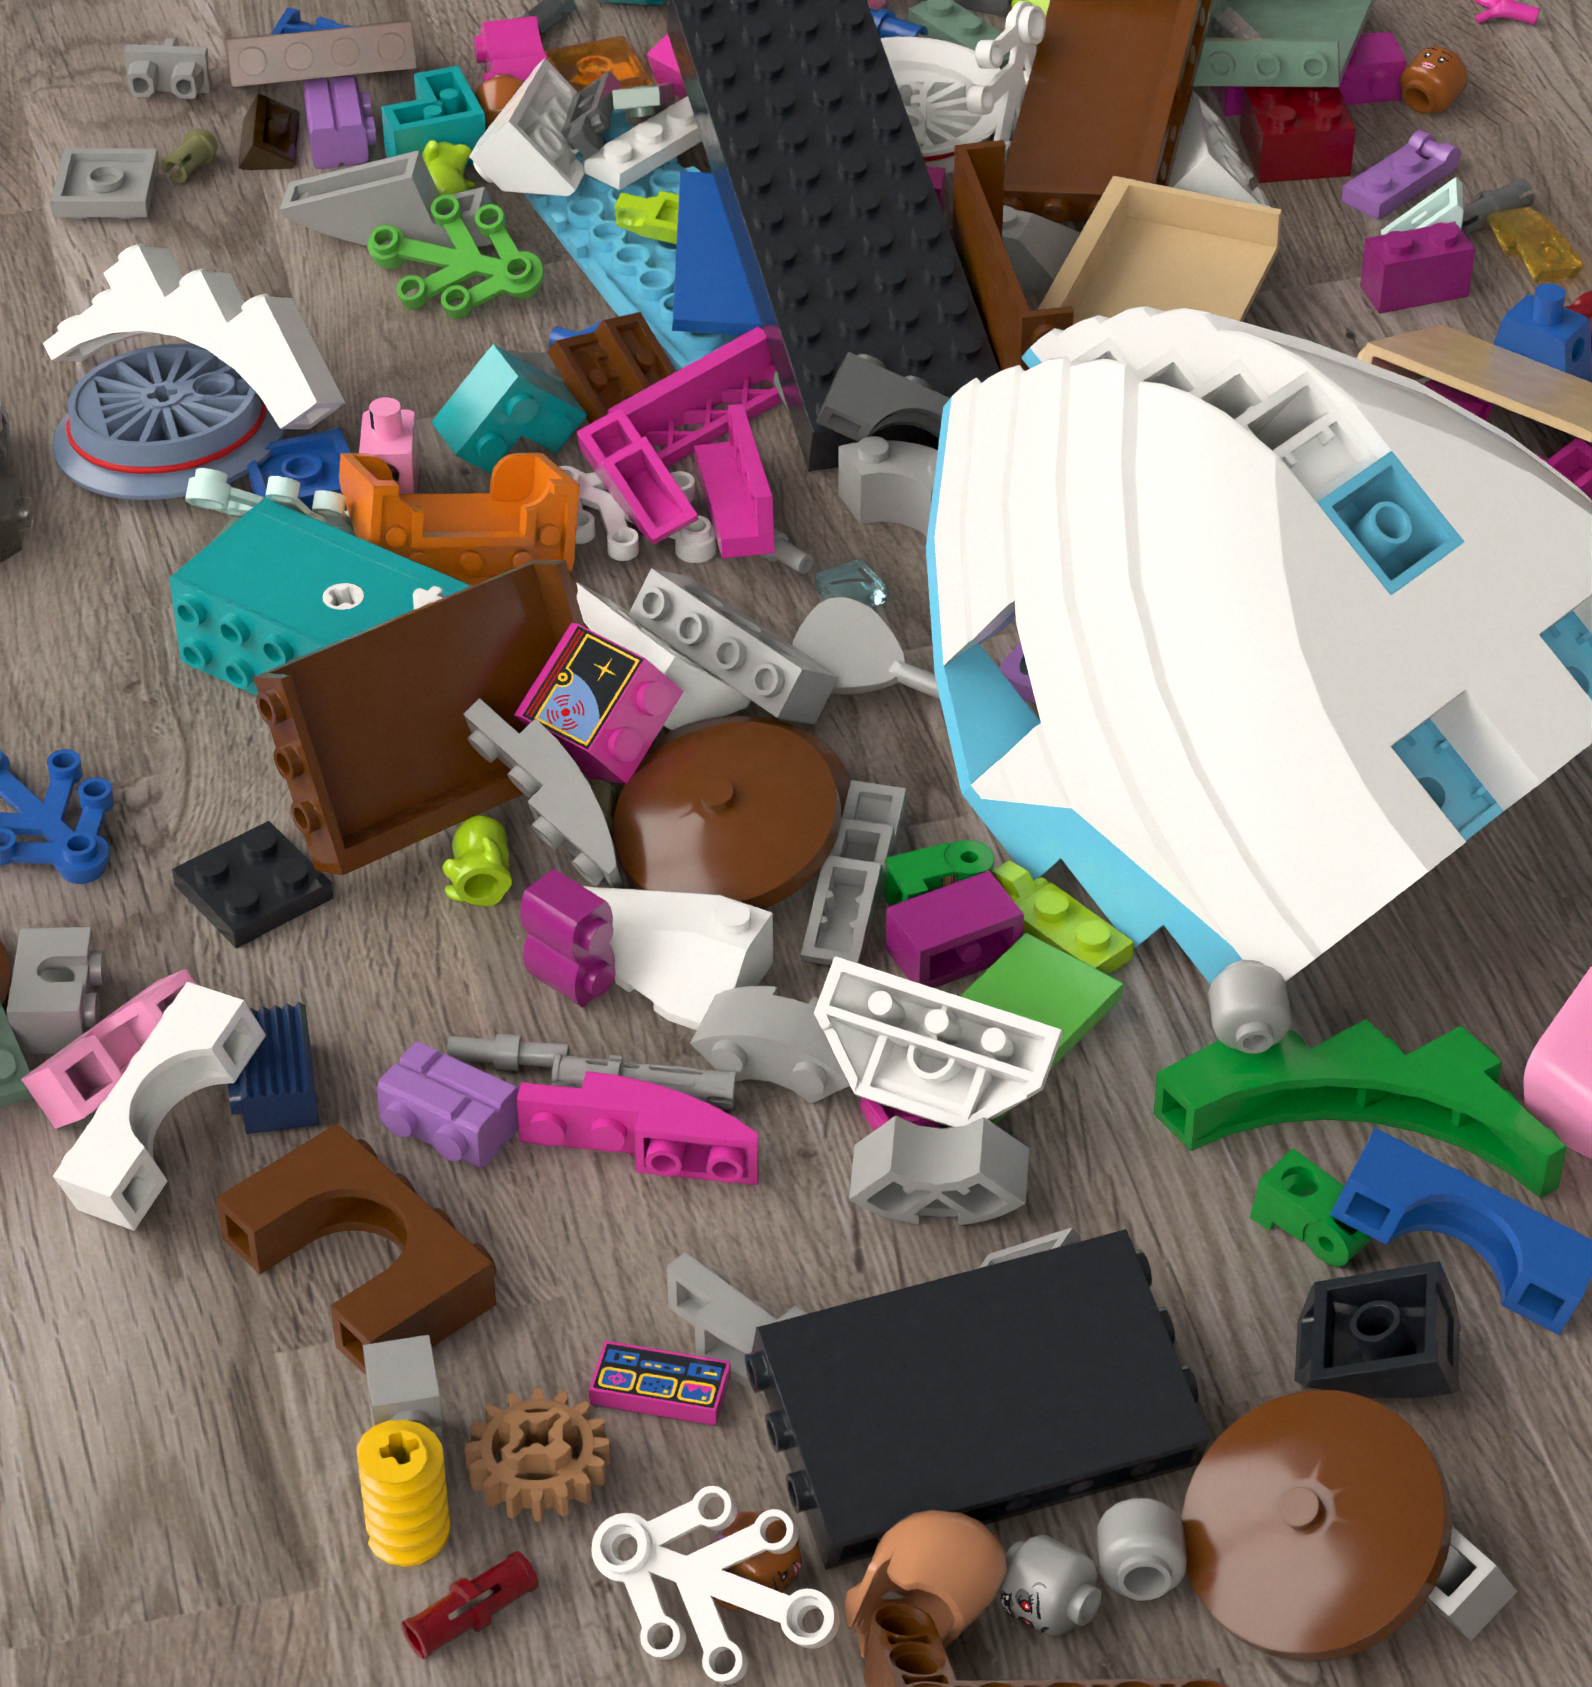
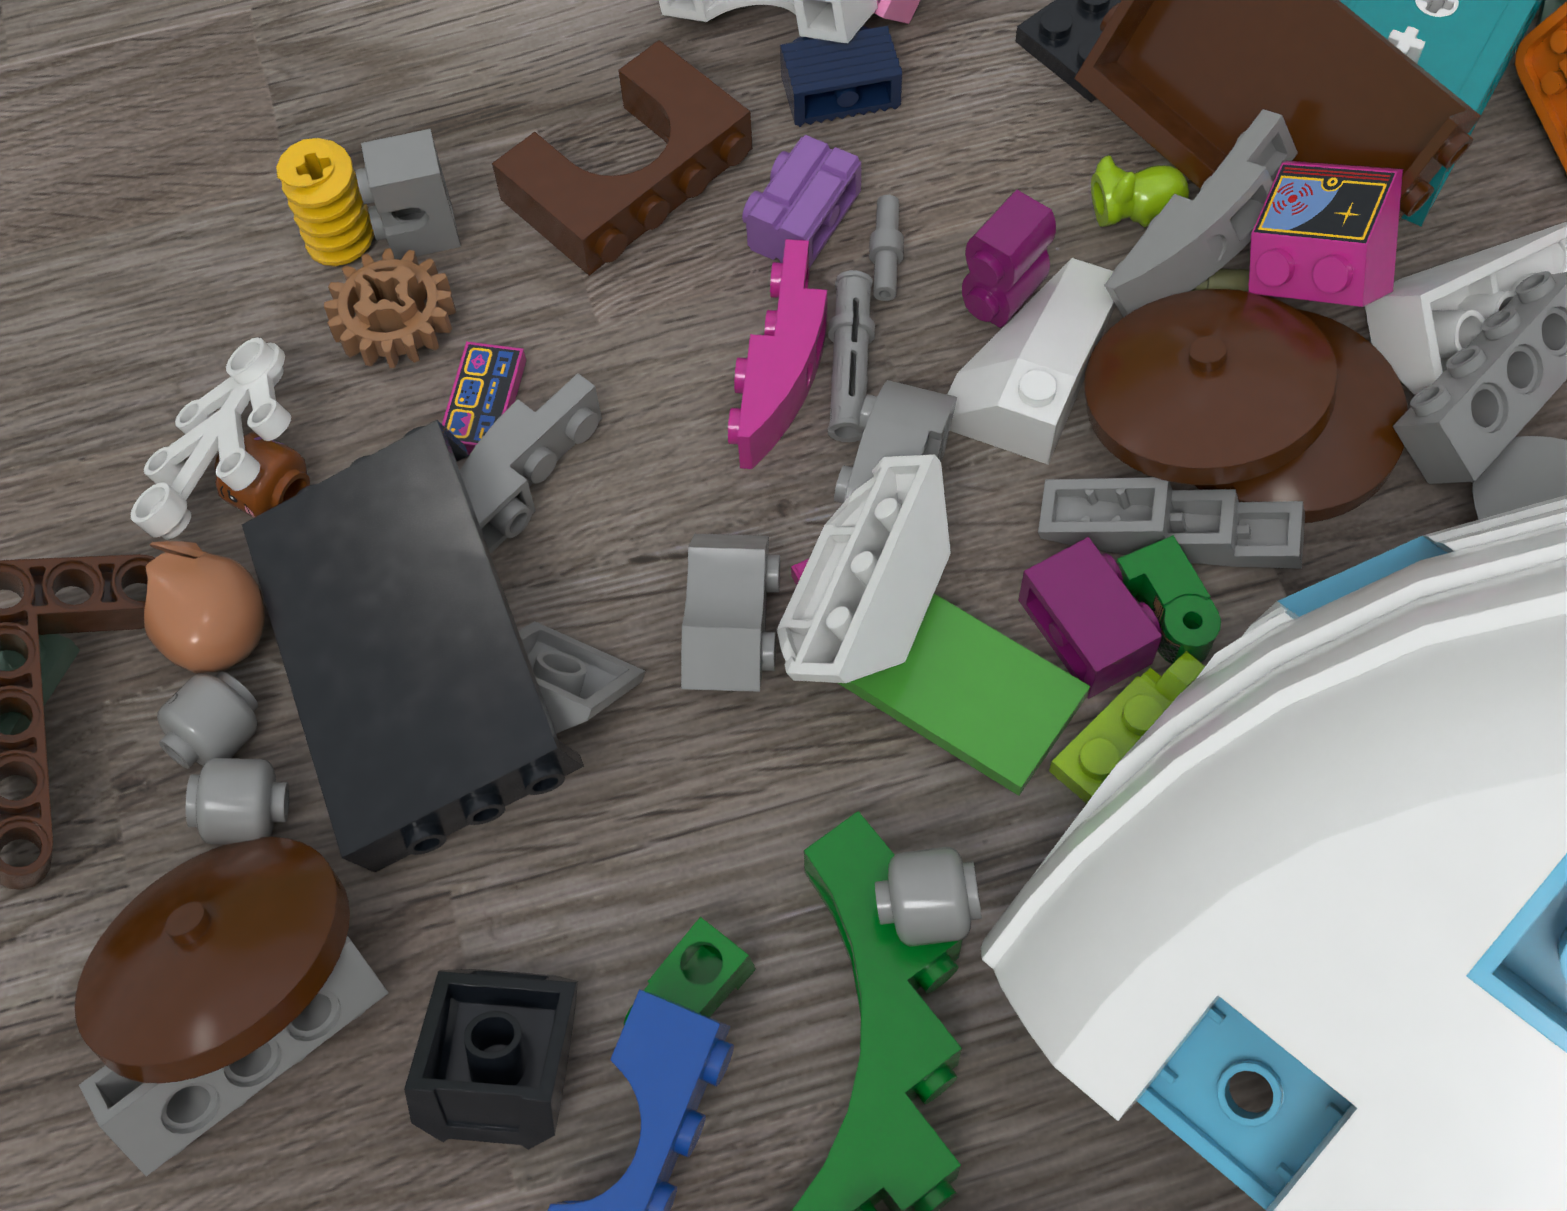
camera: 90 degrees right, 20 degrees up
(433, 1627) = (244, 280): dark red pin -> none

